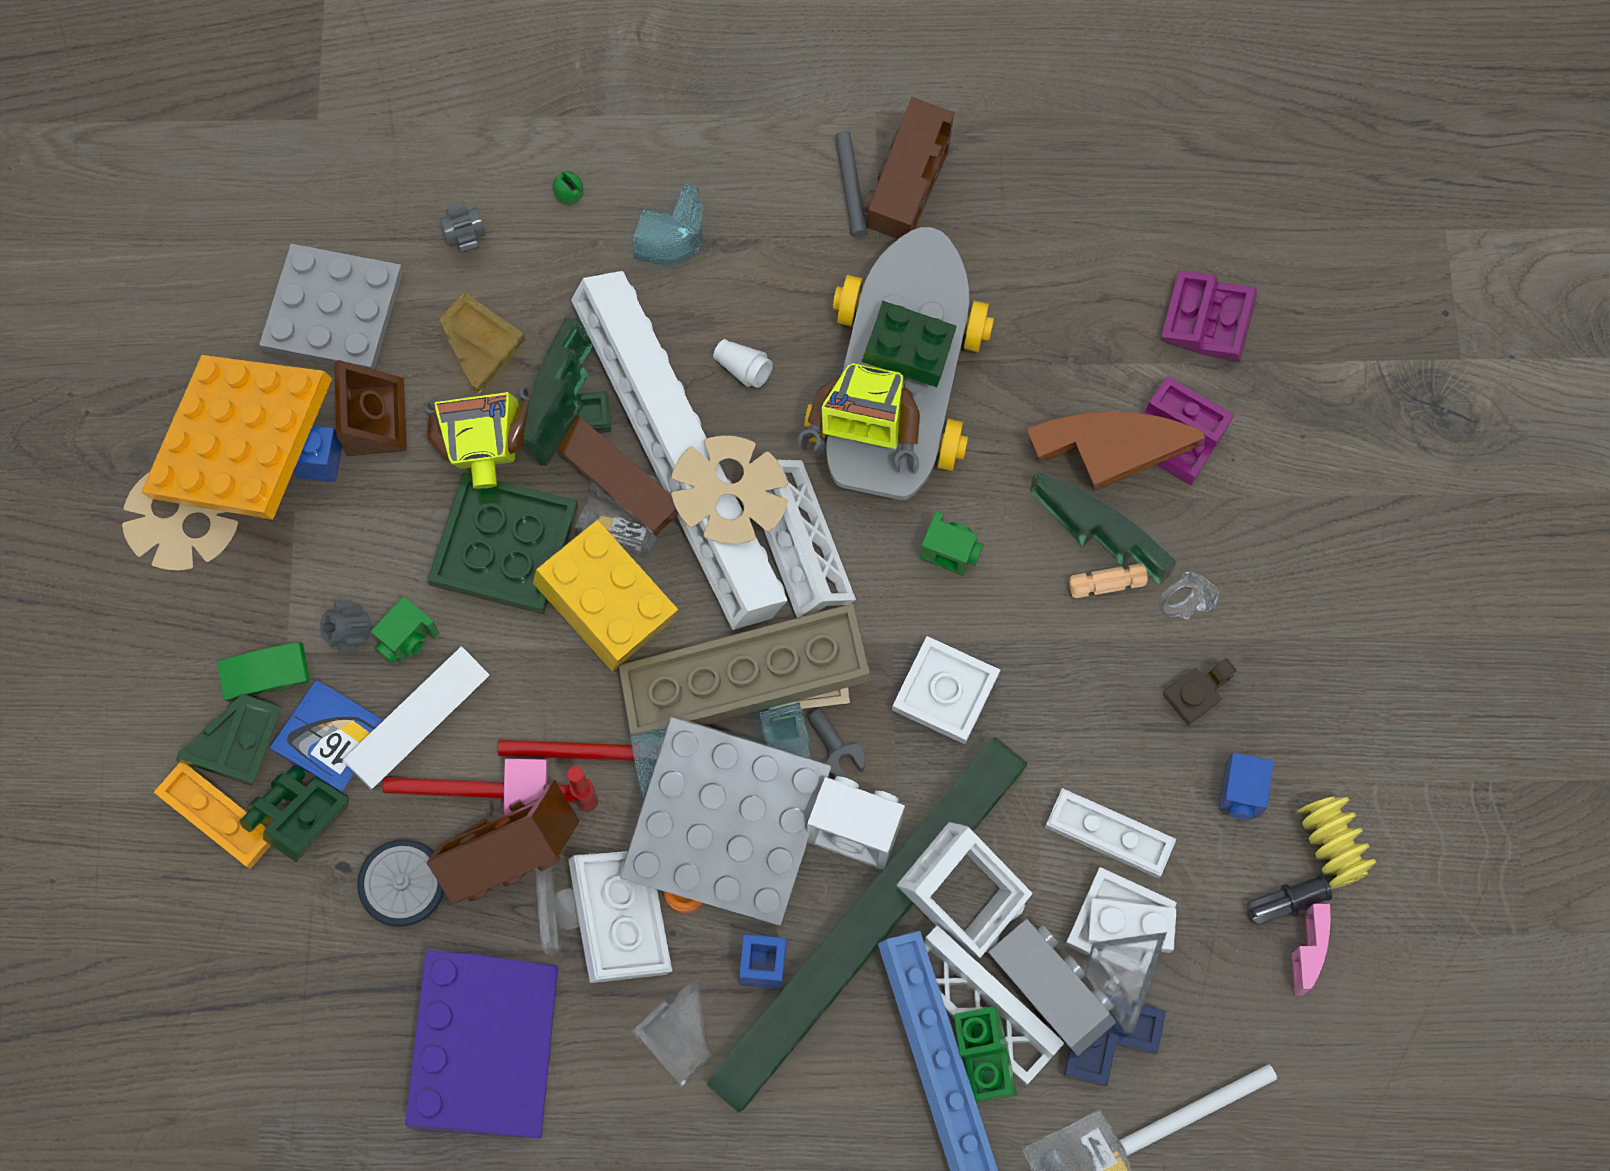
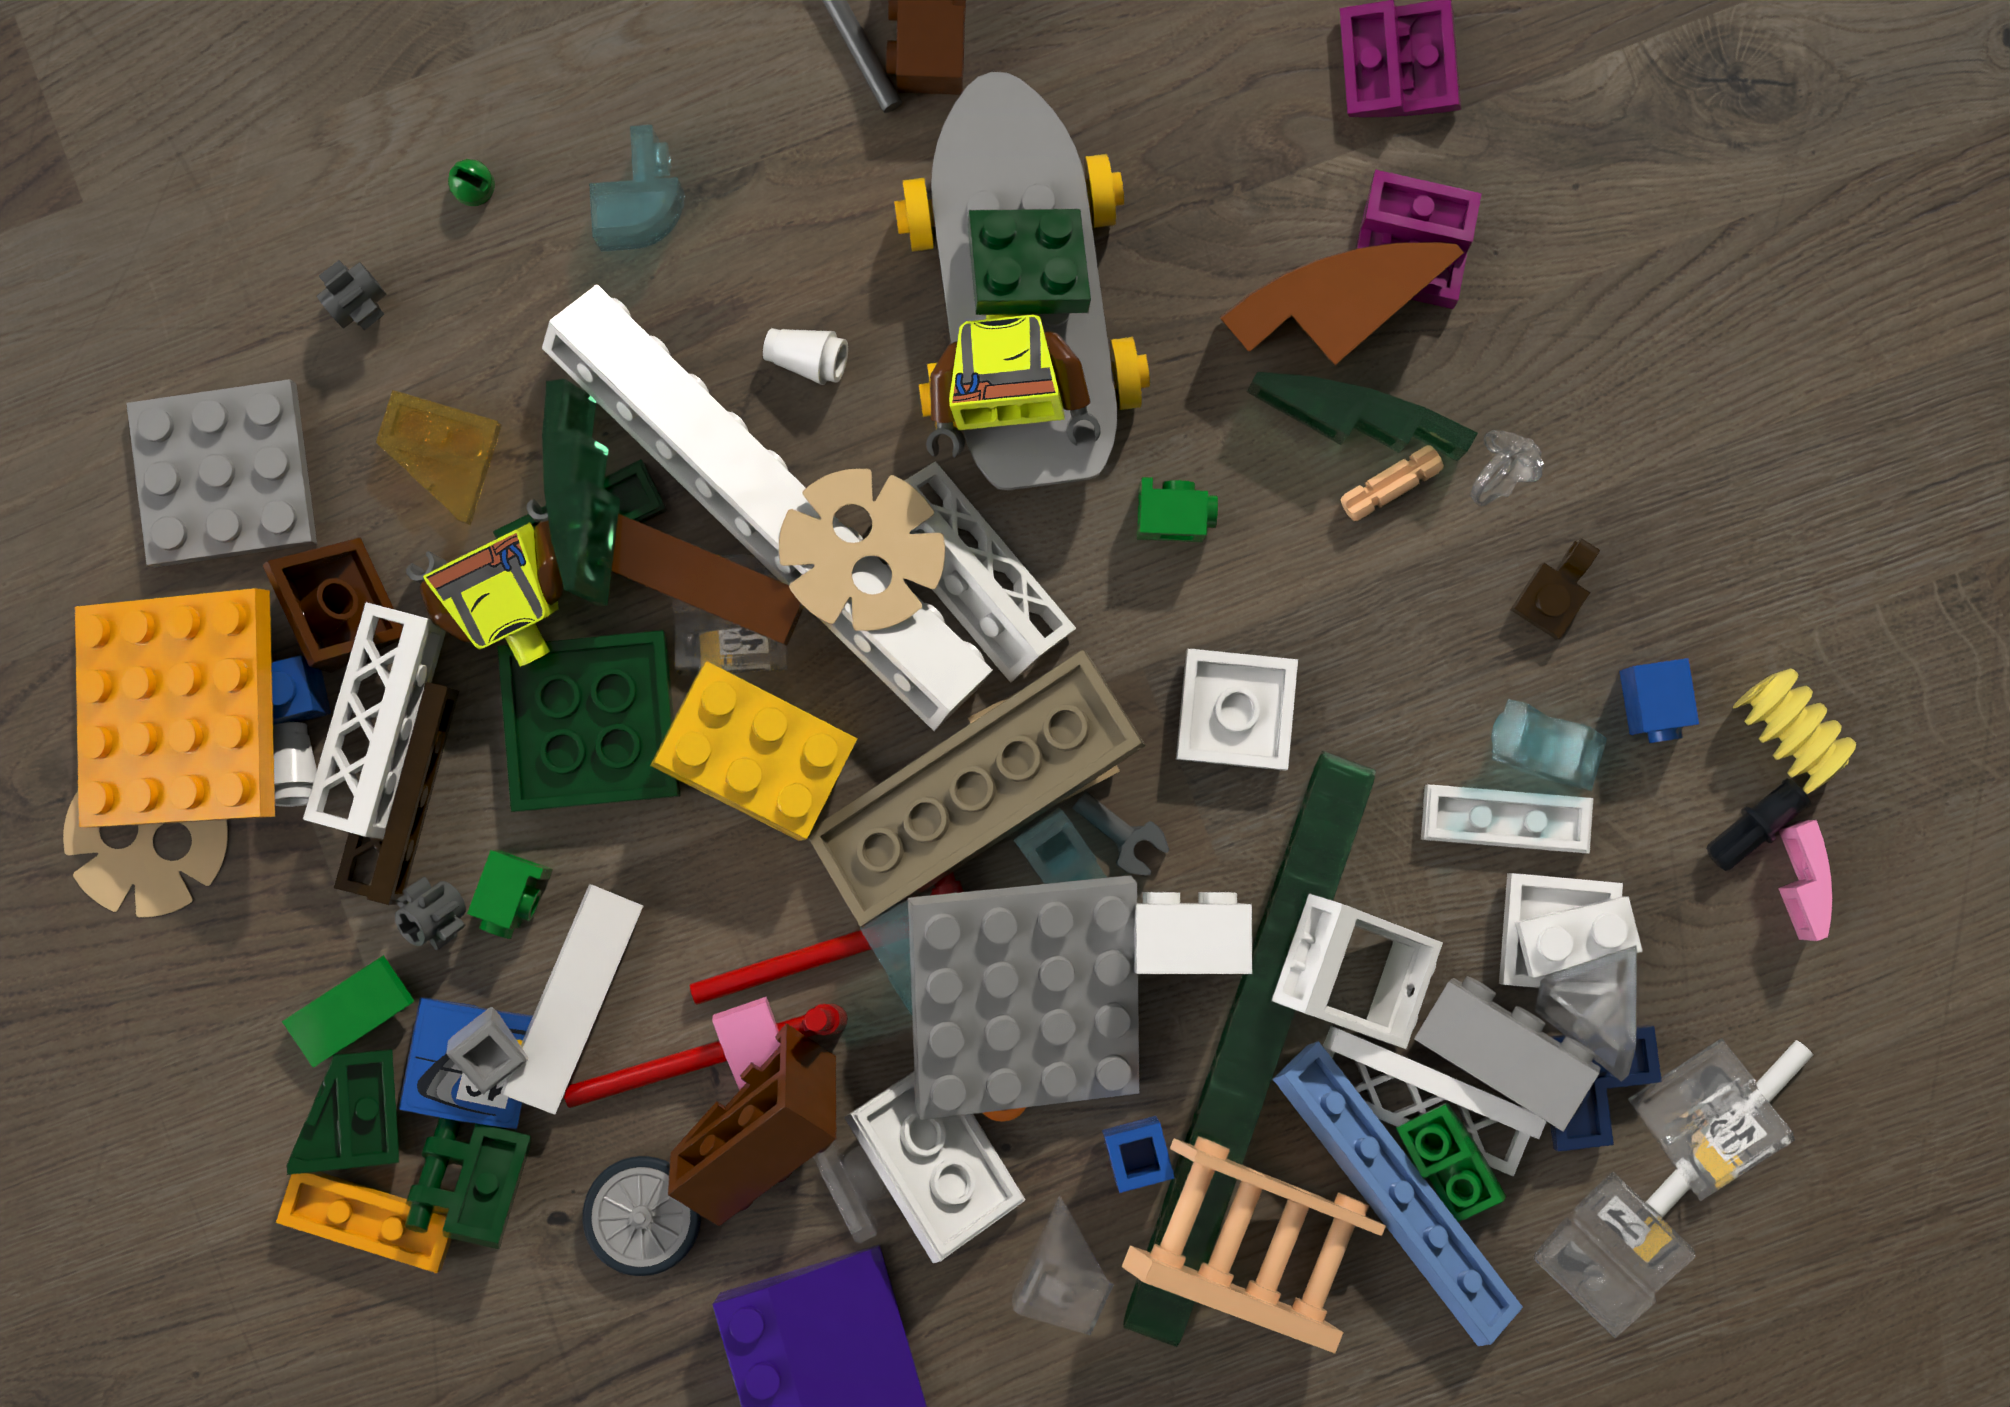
camera: 25 degrees left, 15 degrees up
(296, 503) = (293, 764): none -> white cone
(344, 726) = (486, 1050): none -> light grey slope
(363, 549) = (409, 804): none -> dark brown fence
(373, 499) = (396, 713): none -> white fence
(780, 1064) = (1213, 1282): none -> light nougat fence
(1153, 789) = (1547, 746): none -> clear light blue brick
(1185, 1094) = (1711, 1119): none -> clear slope

